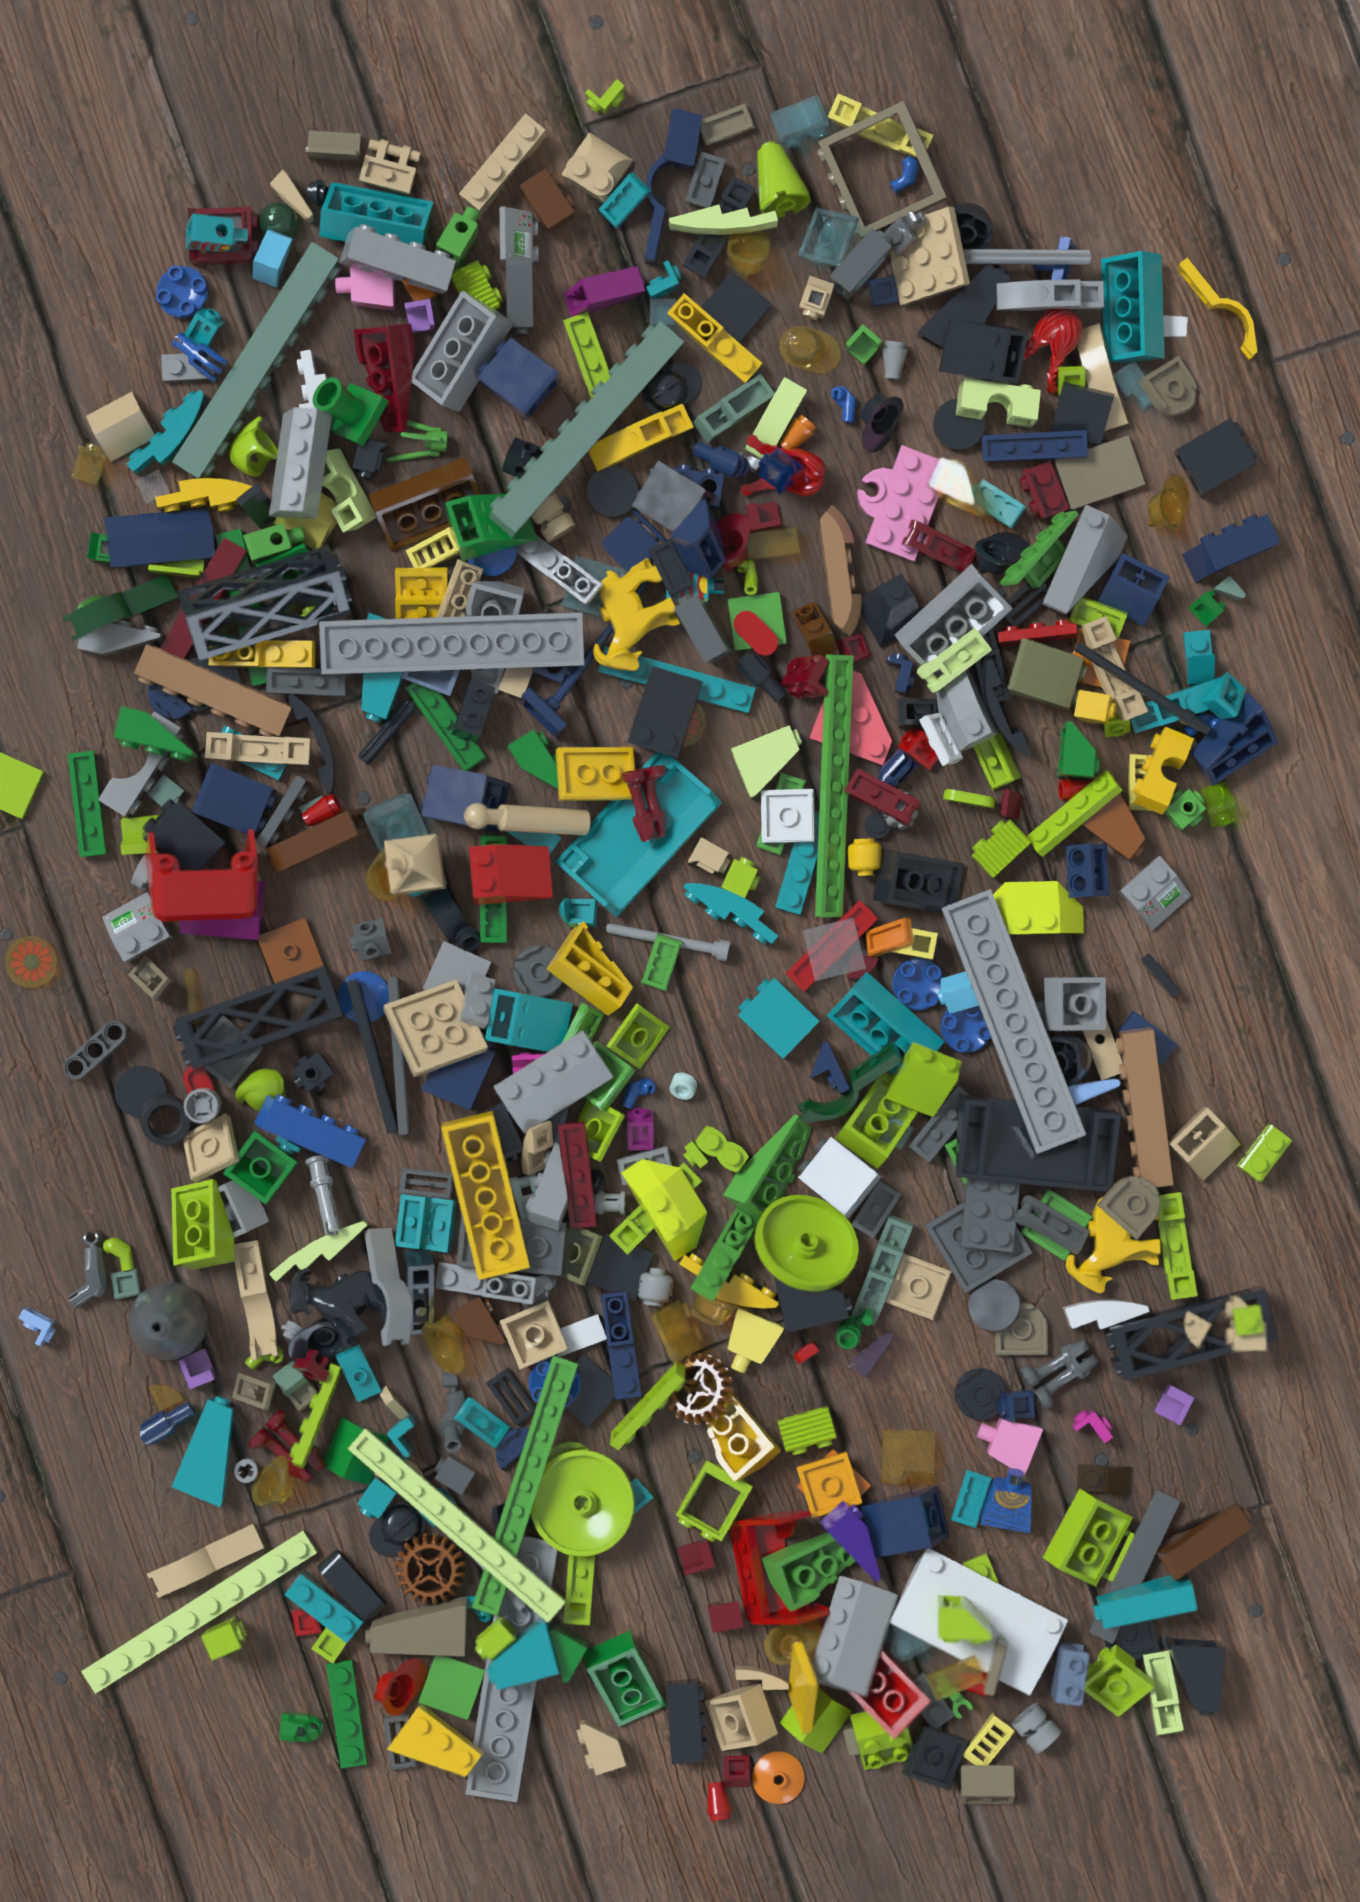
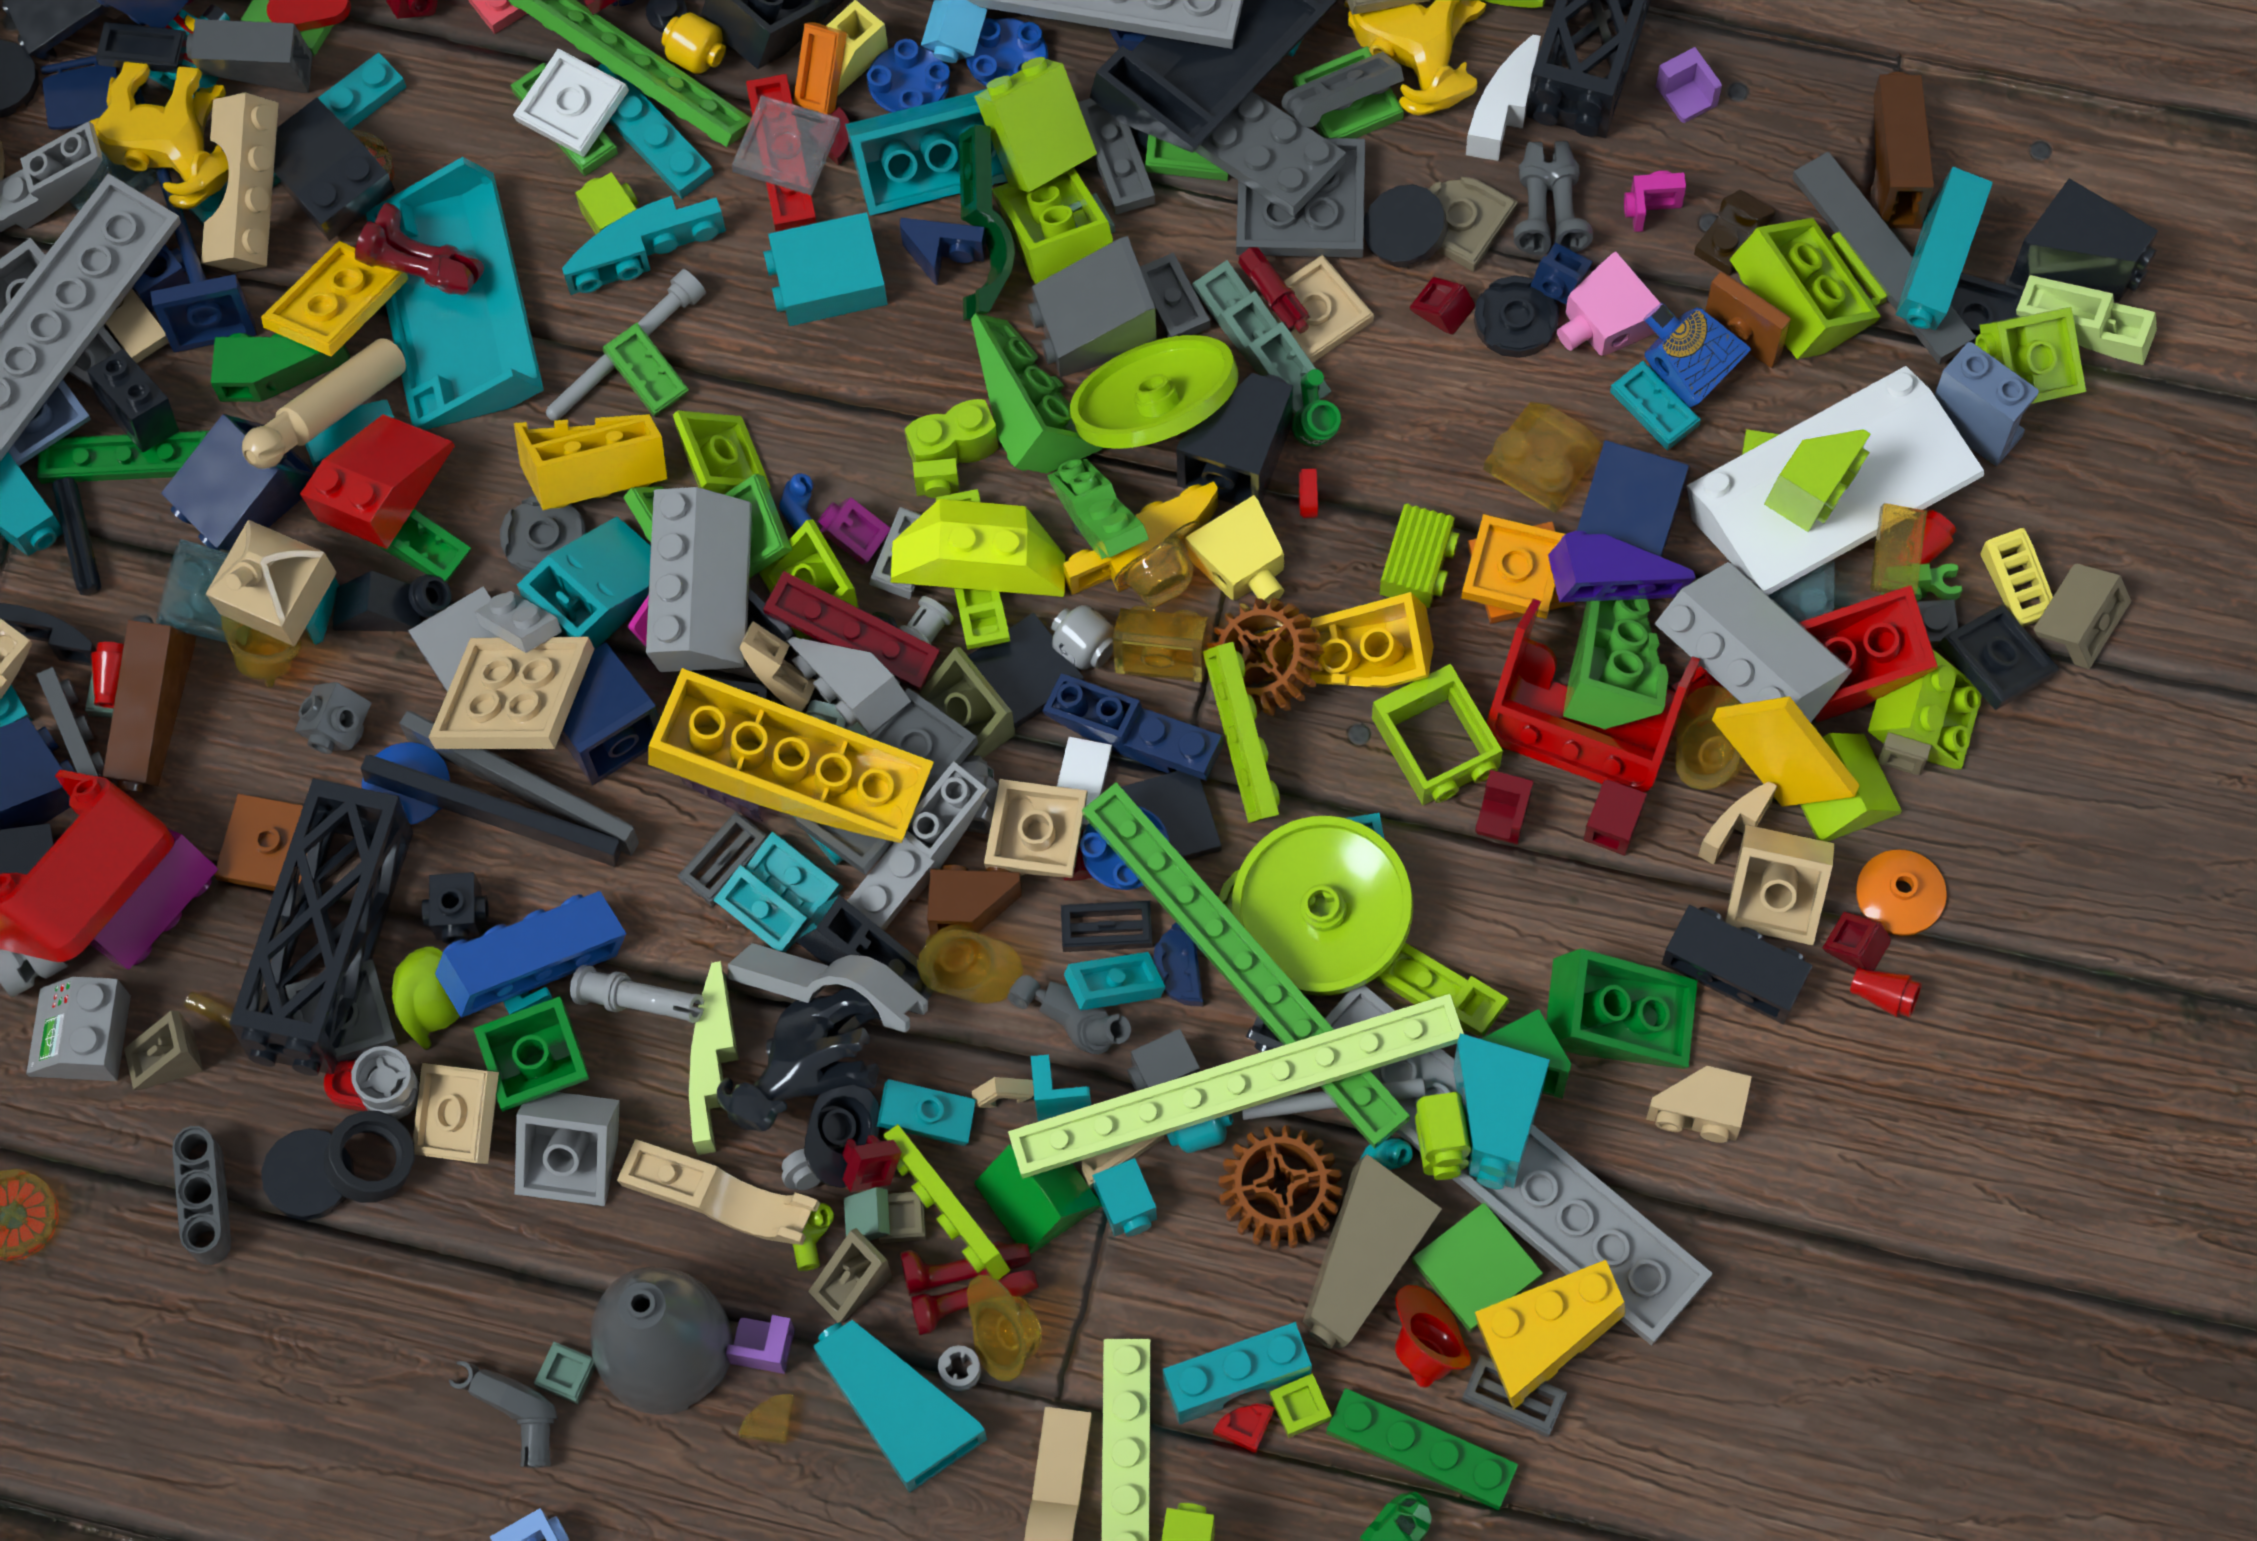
camera: 55 degrees left, 20 degrees down
(121, 1250) = (510, 1346): lime arm -> none
(165, 1423) = (808, 1441): dark blue arm -> none
(200, 1227) = (556, 1197): lime slope -> none
(352, 1585) = (1229, 1315): black beam -> none
(396, 1528) = (1189, 1205): black piece -> none
(578, 910) = (497, 438): teal plate -> none
(652, 666) = (239, 229): none -> tan arch
(683, 1086) = (833, 440): light aqua tile -> none
(709, 857) = (551, 229): tan window -> none
(760, 674) = (363, 35): black arm -> none
(765, 757) = (474, 91): yellowish green slope -> none
(869, 1356) = (1372, 425): clear purple slope -> none
(910, 1263) = (1274, 290): none -> dark red piece
(963, 1351) = (1443, 304): none -> dark red slope
(995, 1666) = (1913, 480): dark tan tile -> none
(1038, 1730) = (2052, 496): light grey wheel -> none
(1044, 1521) = (1748, 318): none -> dark orange plate

